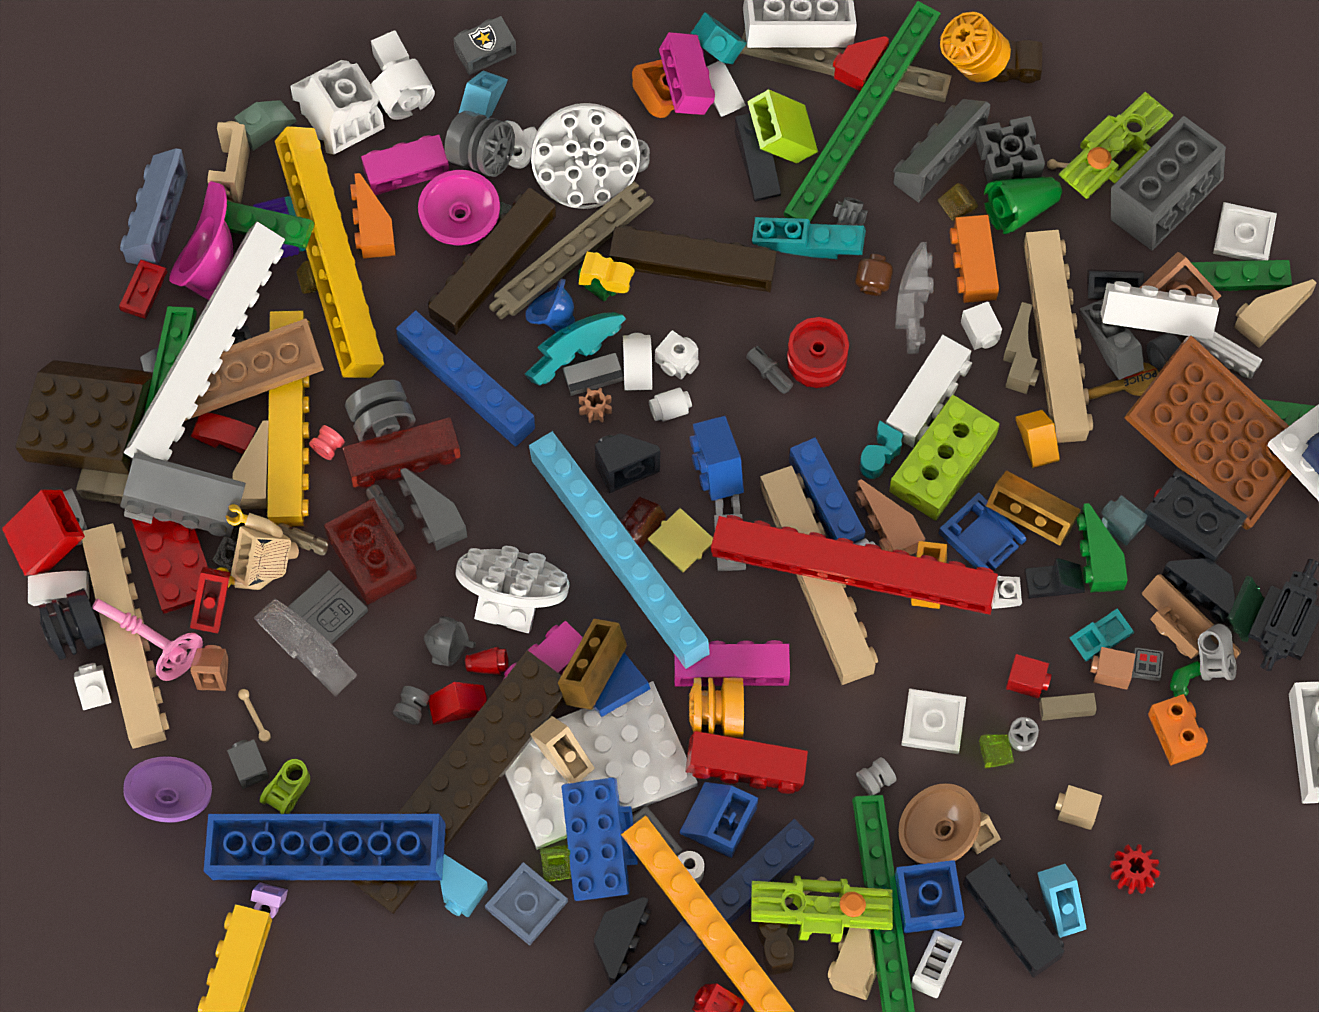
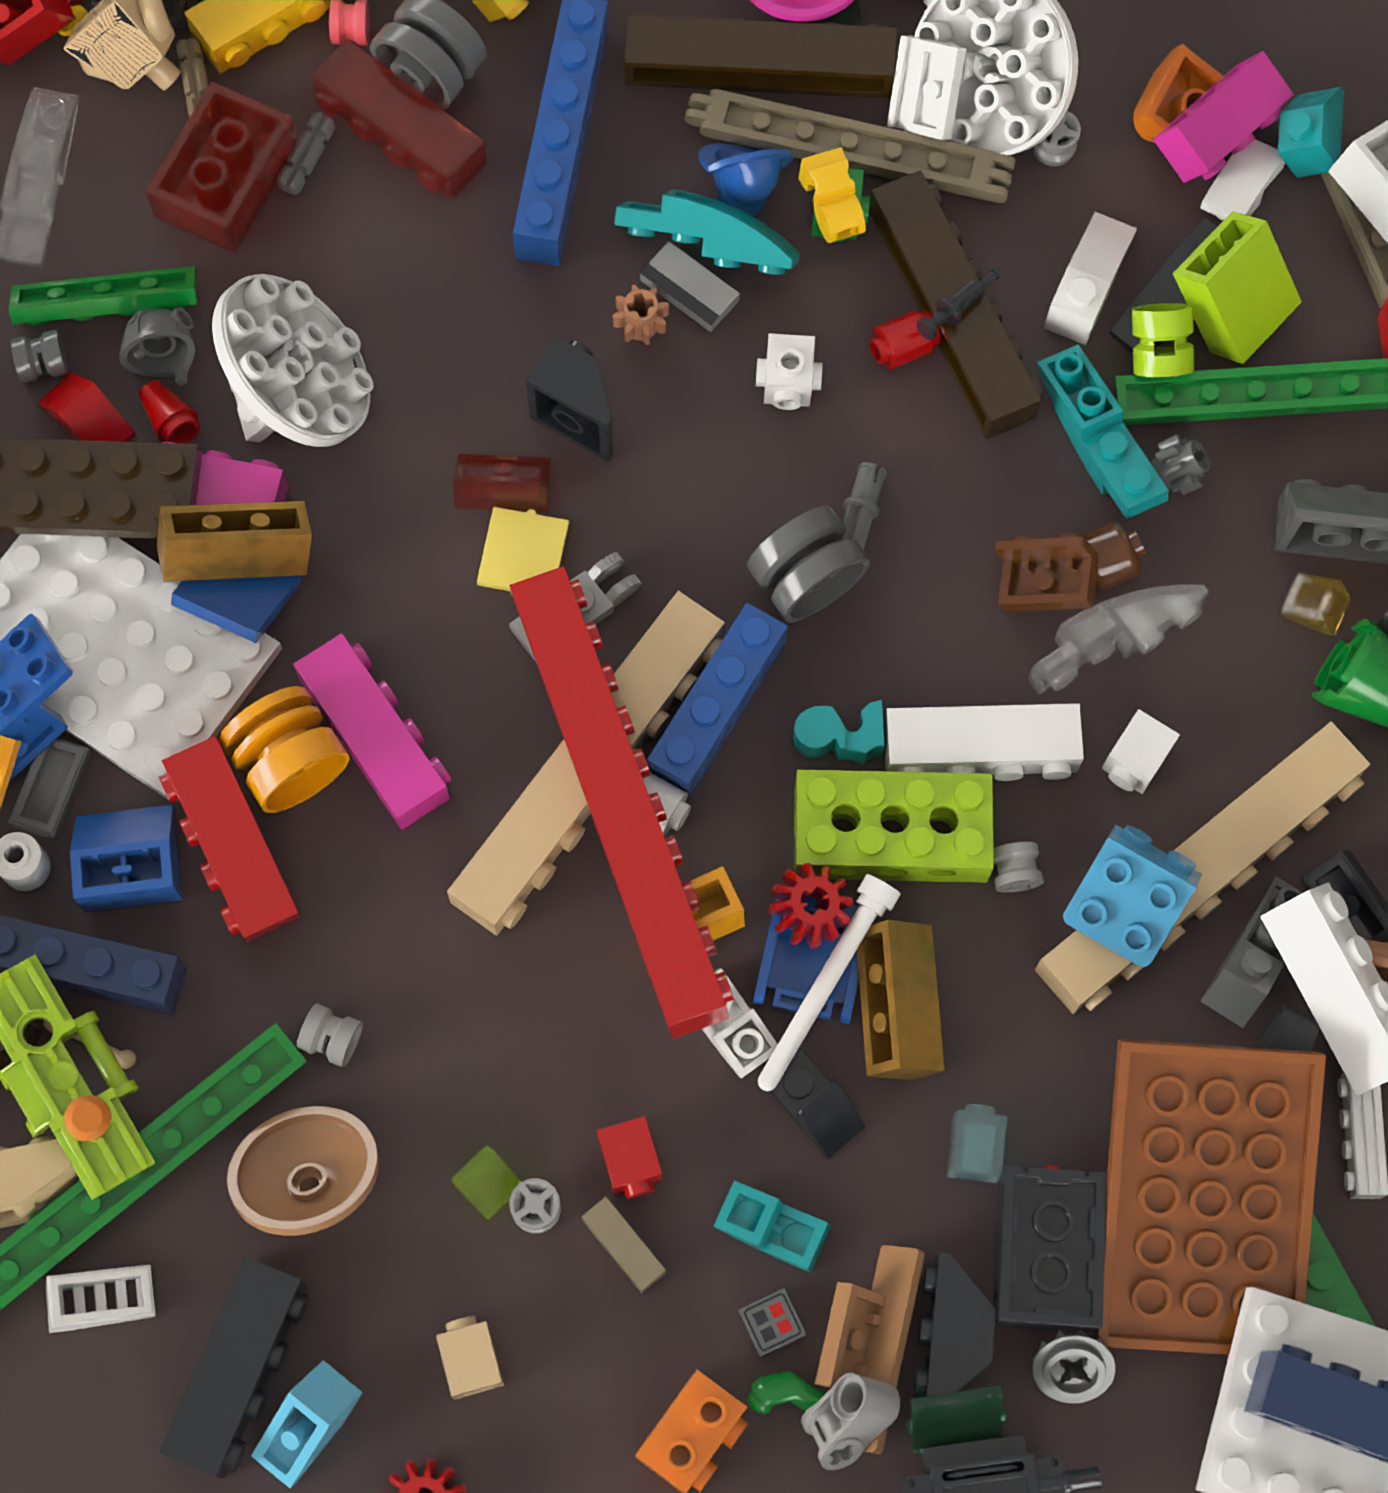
camera: 55 degrees right, 5 degrees up
(329, 607) = (113, 172): dark grey tile -> none
(398, 653) = (103, 295): none -> green plate
(437, 512) = (337, 219): dark grey slope -> none
(562, 750) = (82, 582): tan slope -> none
(572, 194) = (926, 87): none -> white plate
(619, 550) = (430, 476): medium azure brick -> none
(637, 362) = (740, 324): white brick -> none
(670, 404) = (710, 409): white brick -> none
(695, 293) = (900, 341): none -> red brick
(703, 259) = (950, 309): none -> black piece
(717, 458) = (660, 514): blue brick -> none
(722, 189) = (1089, 278): none -> white slope
(786, 179) = (1163, 323): none -> lime wheel
(787, 408) = (808, 564): none -> dark grey wheel
(817, 352) = (928, 551): red wheel -> none
(866, 307) = (1047, 573): none -> reddish brown bracket
(893, 523) = (736, 824): nougat slope -> none
(929, 896) = (182, 1223): blue brick -> none
(933, 721) = (475, 1065): white tile -> none
(963, 515) = (824, 920): none -> red gear
(974, 258) = (1239, 677): orange brick -> none
(980, 485) = (873, 901): none -> white piece
(987, 835) = (345, 1241): tan slope -> none
(1002, 415) = (1017, 867): none -> light grey wheel
(1018, 352) = (1152, 817): dark tan slope -> none
(1038, 437) = (1023, 942): light orange slope -> none
(1055, 370) = (1132, 895): none -> dark azure bracket
(1103, 556) = (891, 1156): green slope -> none
(1113, 668) = (727, 1274): nougat brick -> none
(1133, 384) = (1207, 1024): pearl gold piece -> none
(1261, 550) = (1073, 1384): none -> gear

